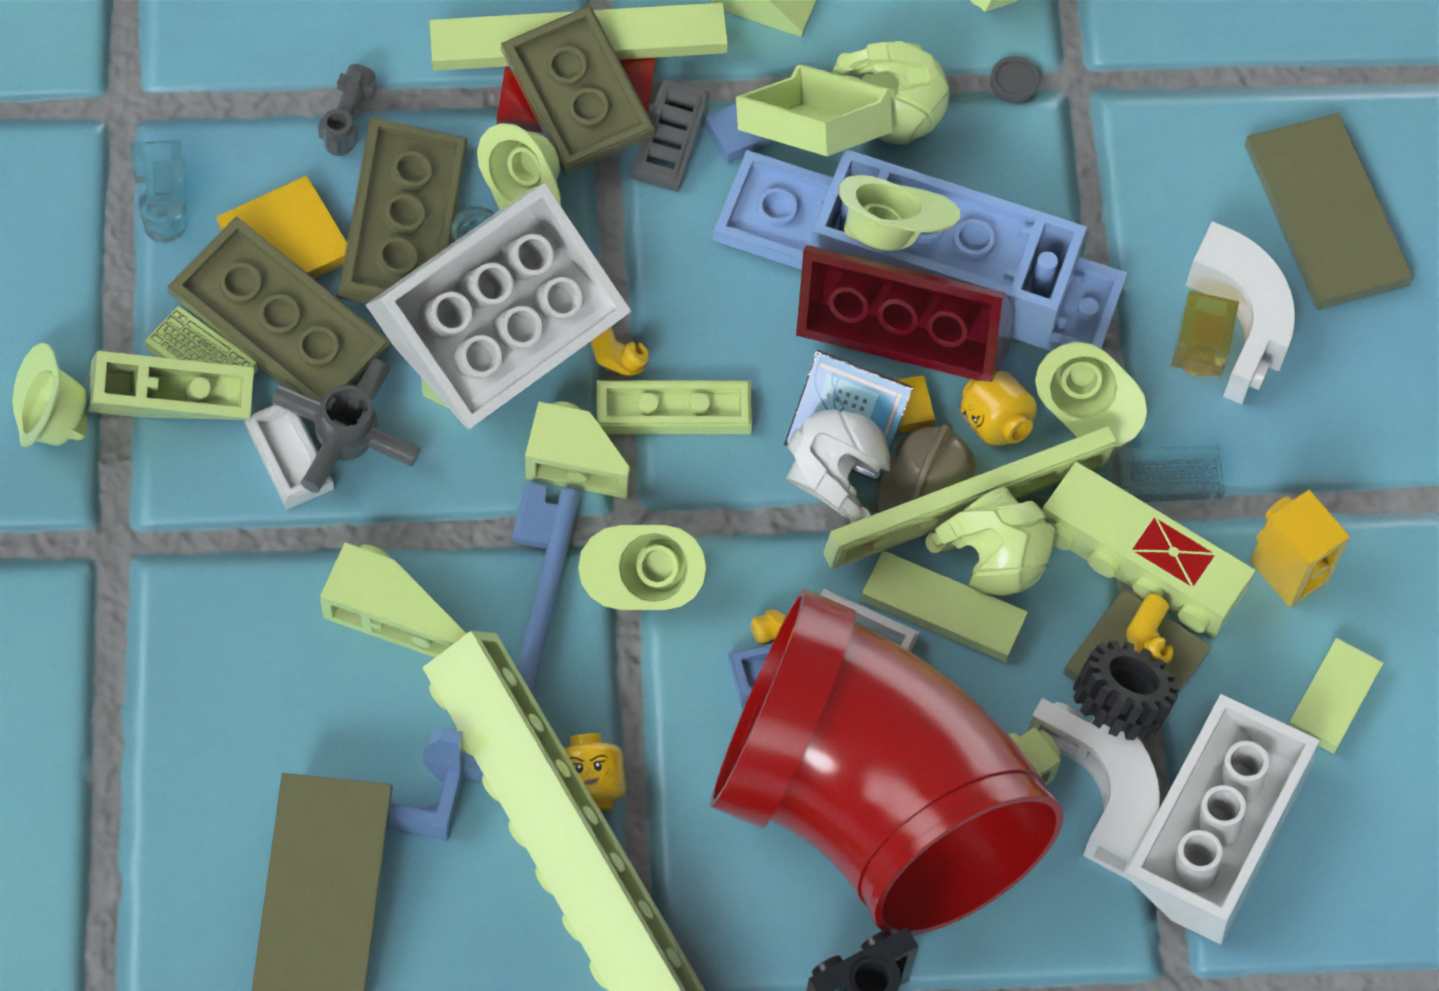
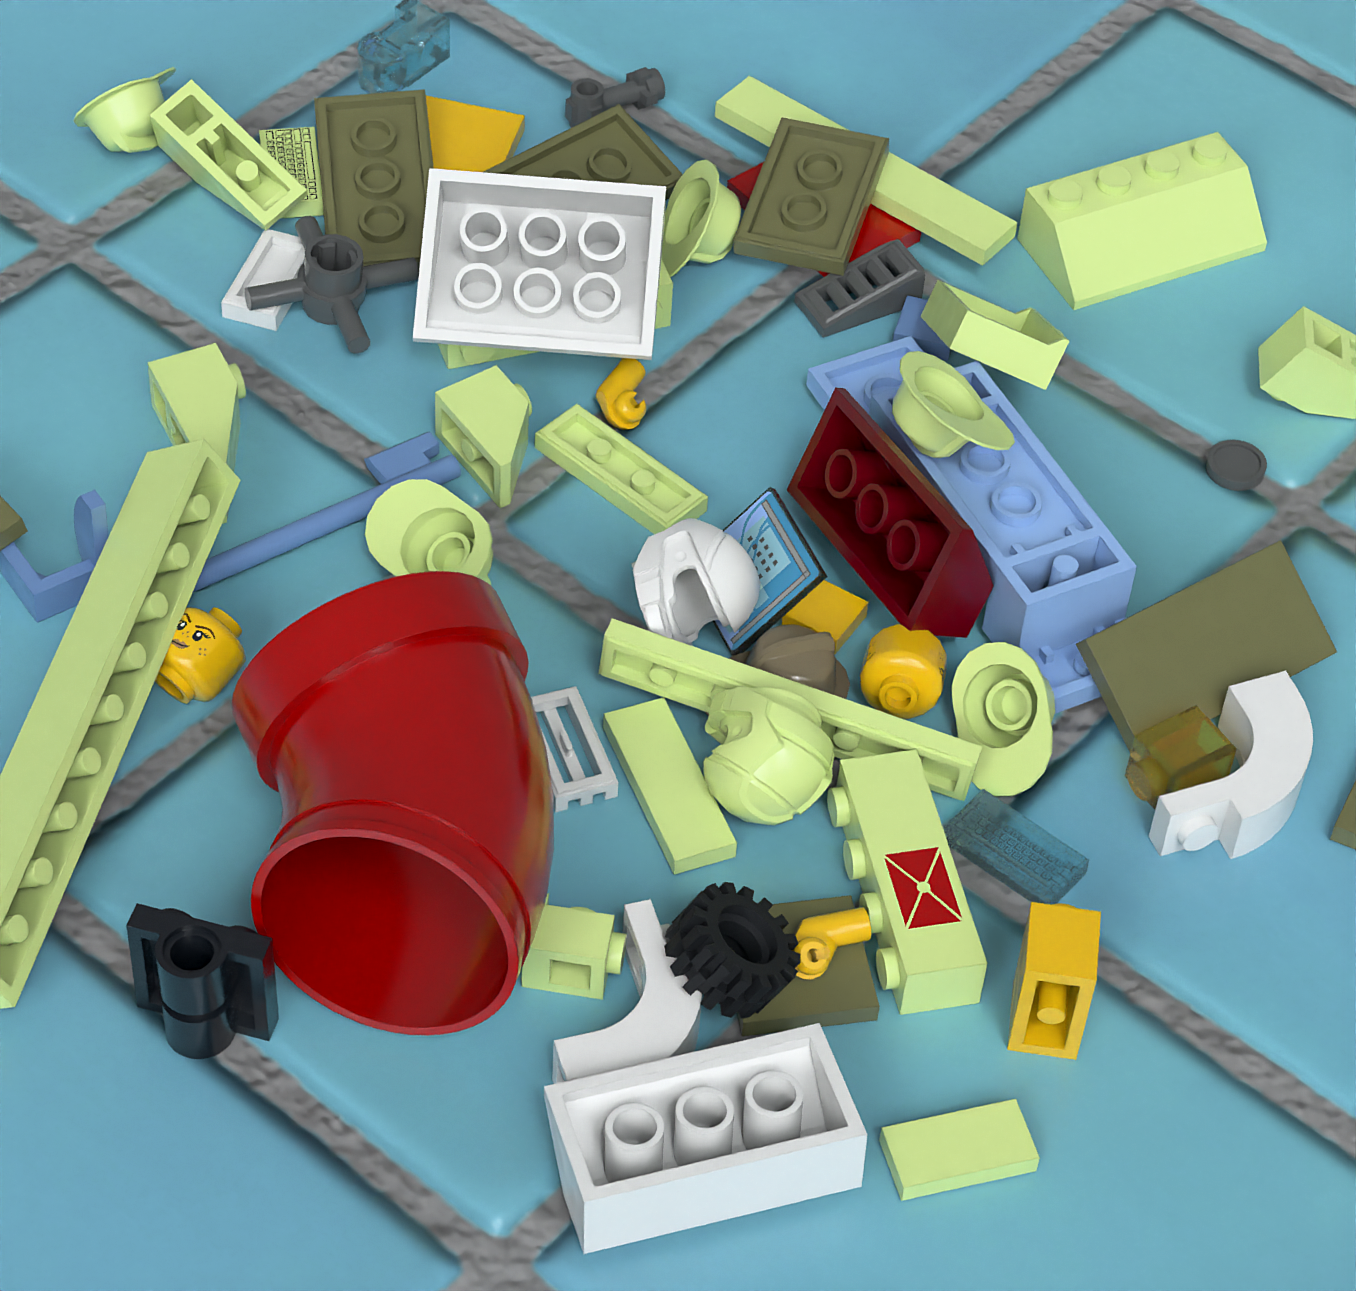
camera: 45 degrees right, 15 degrees down
(916, 85) = (1101, 395): yellowish green helmet -> none
(1147, 240) = (1204, 639): none -> olive tile

